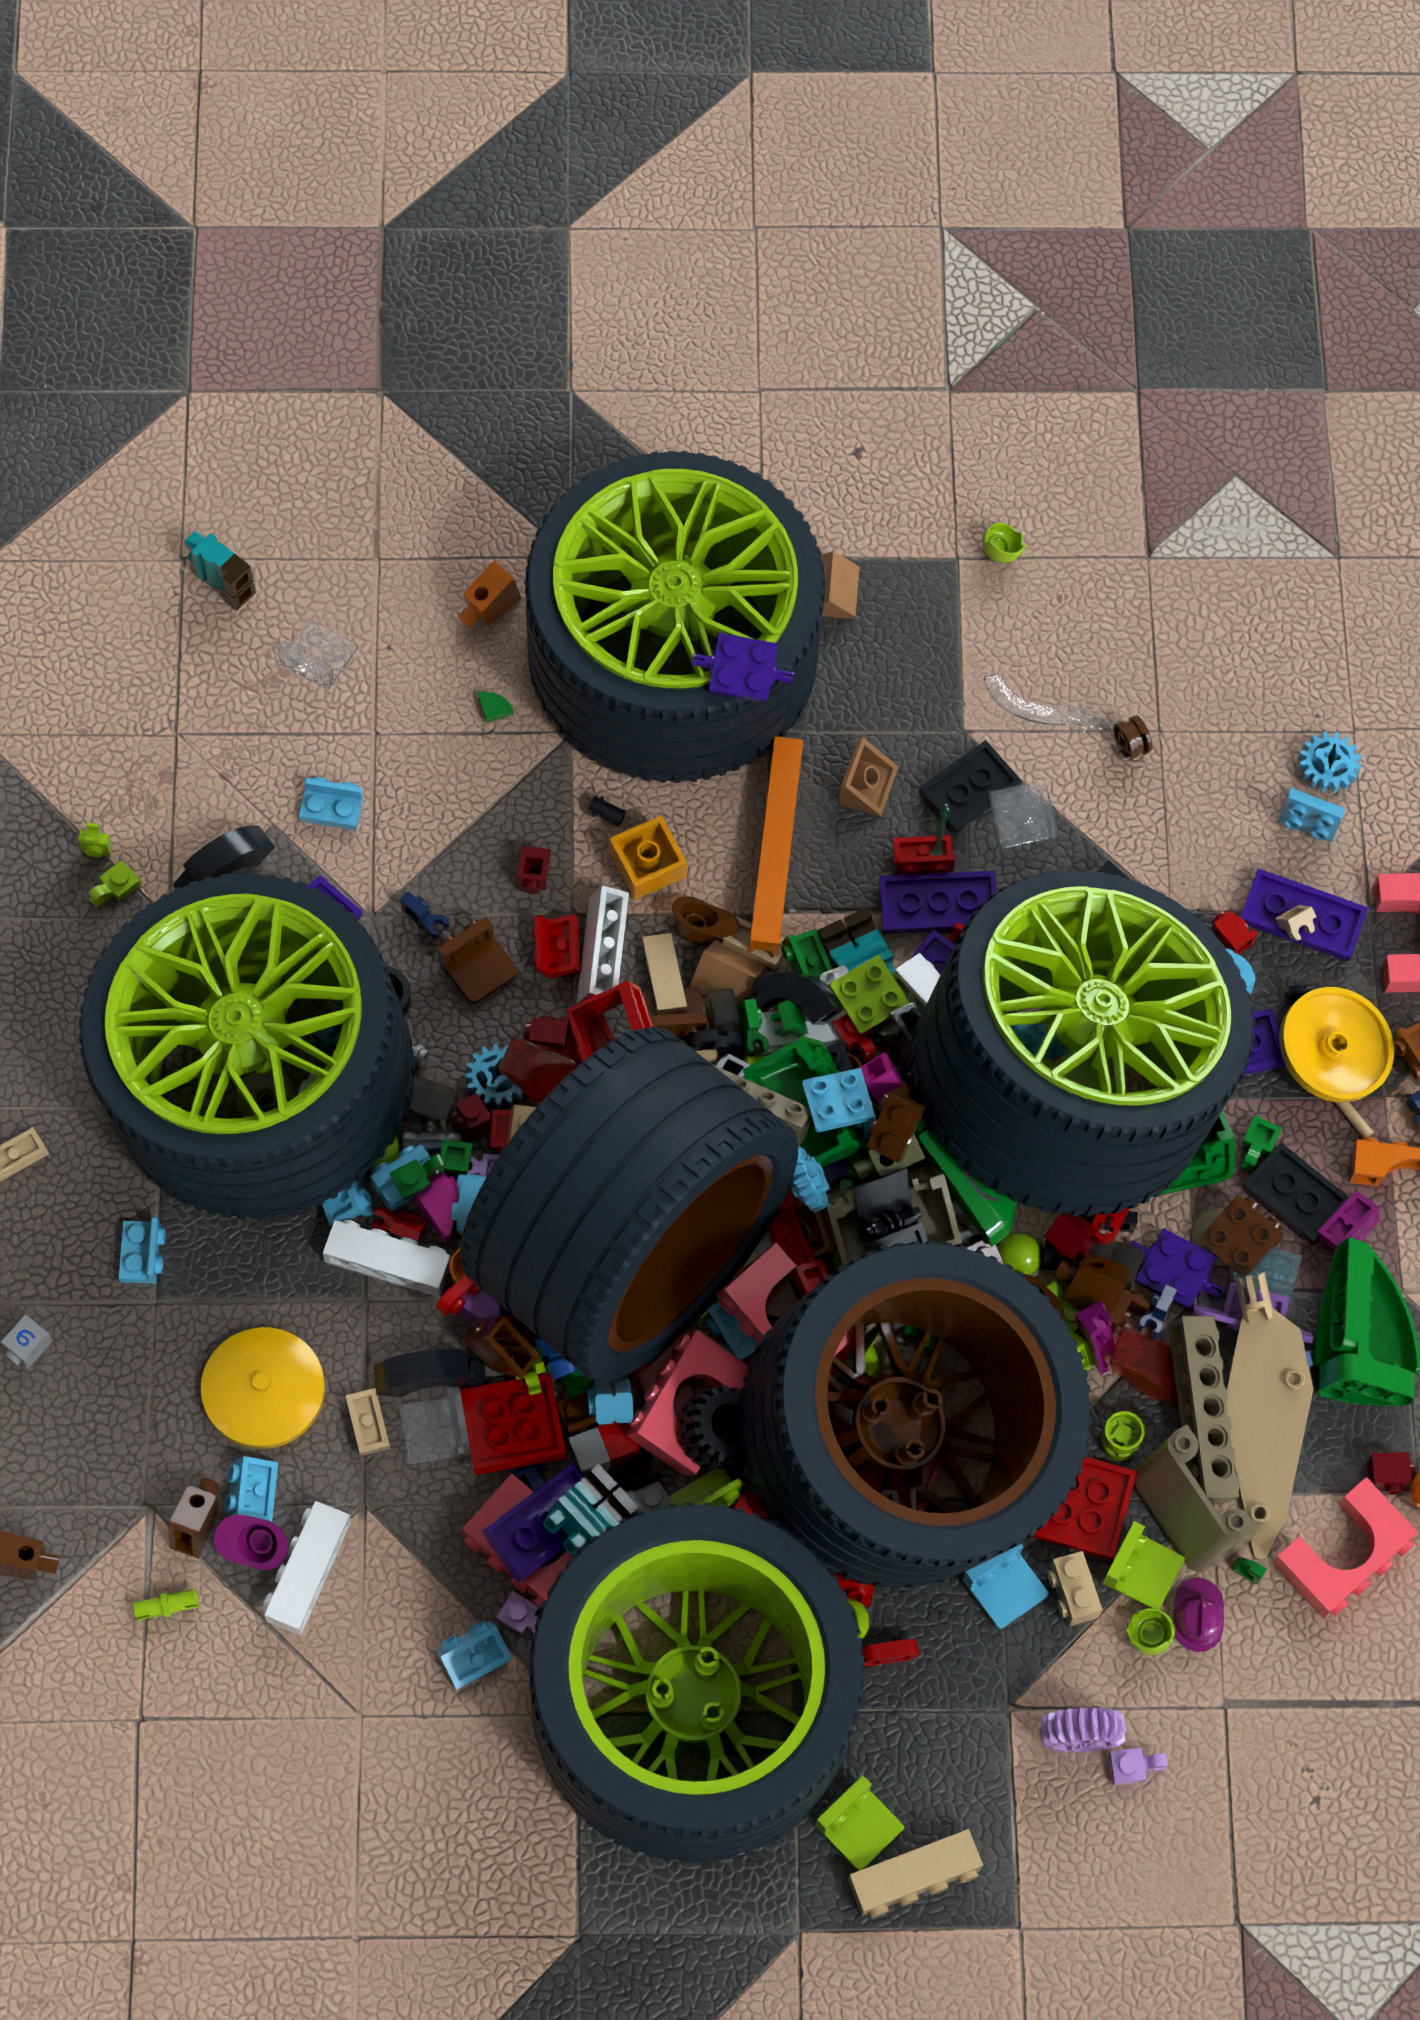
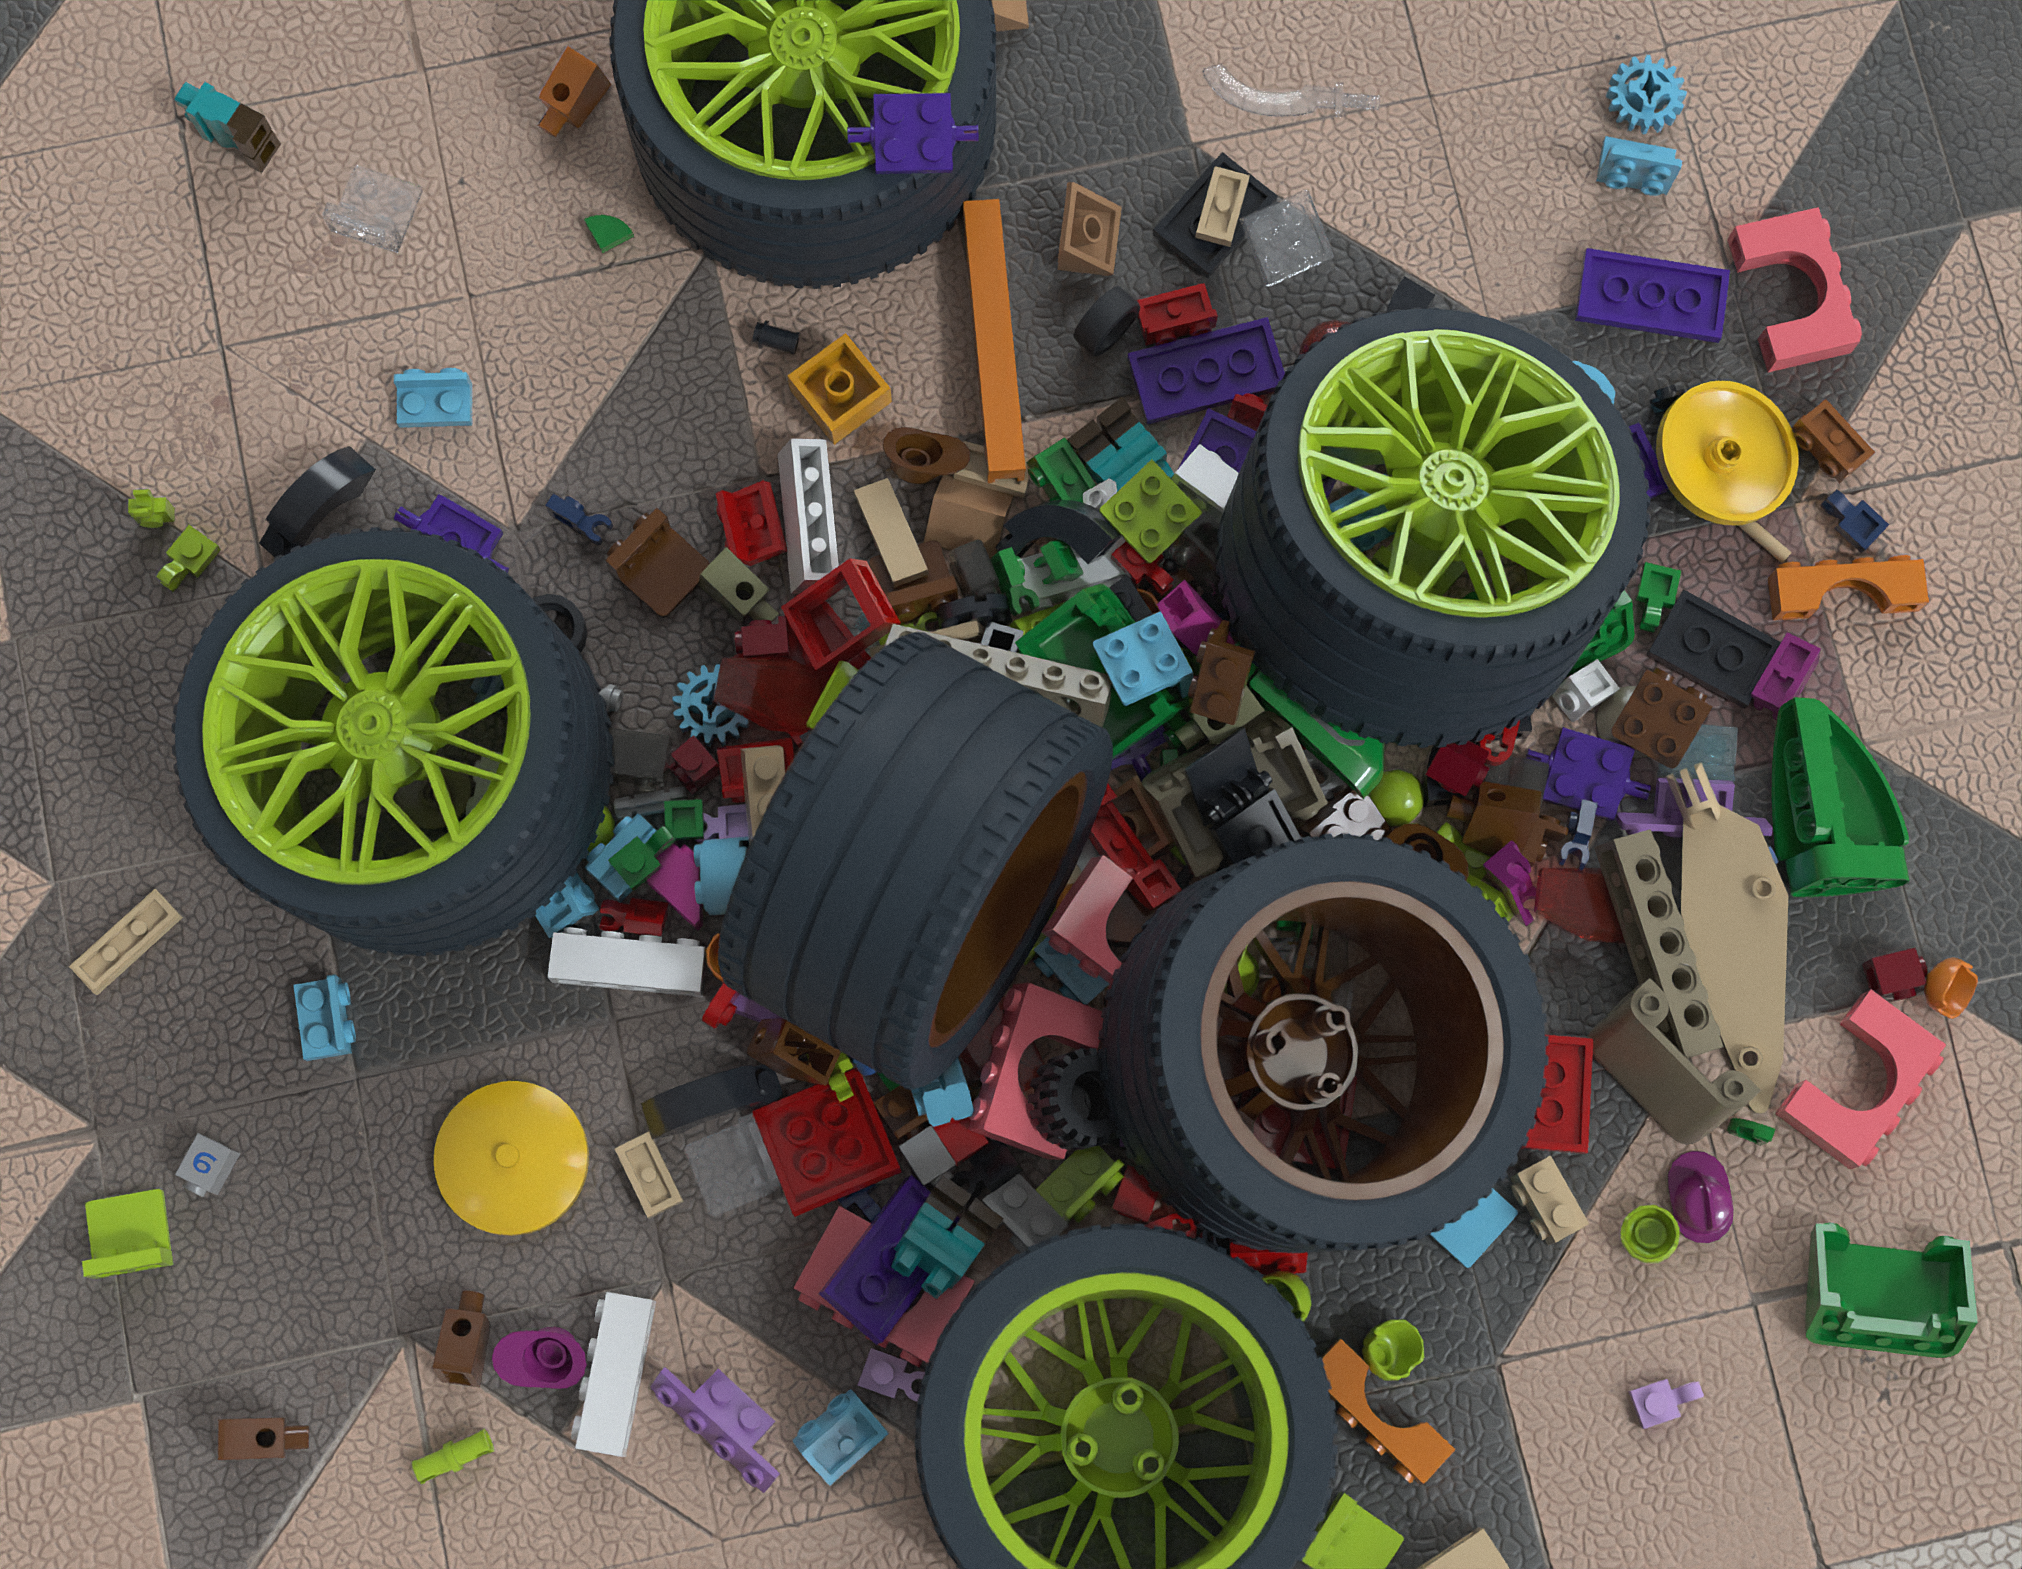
camera: 10 degrees left, 10 degrees up
(251, 1488) = (525, 1291): medium azure bracket -> none
(384, 1621) = (724, 1419): none -> medium lavender bracket
(530, 981) = (729, 575): none -> olive torso
(533, 860) = (698, 421): dark red brick -> none
(810, 1182) = (1131, 773): medium azure gear -> none
(867, 848) = (1106, 321): none -> black tyre
(890, 1652) = (1343, 1326): red beam -> none
(926, 1677) = (1393, 1349): none -> lime hair
(927, 1758) = (1415, 1449): none -> orange arch
(945, 808) = (1192, 307): clear green hinge -> none
(976, 779) = (1222, 206): none -> tan plate
(1082, 1730) = (1595, 1377): lavender gear -> none
(1122, 1436) = (1568, 998): lime wheel -> none
(1133, 737) = (1401, 112): reddish brown wheel -> none
(1143, 1569) = (1624, 1157): lime bracket -> none
(1186, 1204) = (1585, 690): none -> white bracket
(1233, 932) = (1571, 335): red brick -> none
(1295, 918) = (1647, 304): tan tile -> none
(1331, 1721) = (1889, 1295): none -> green windscreen

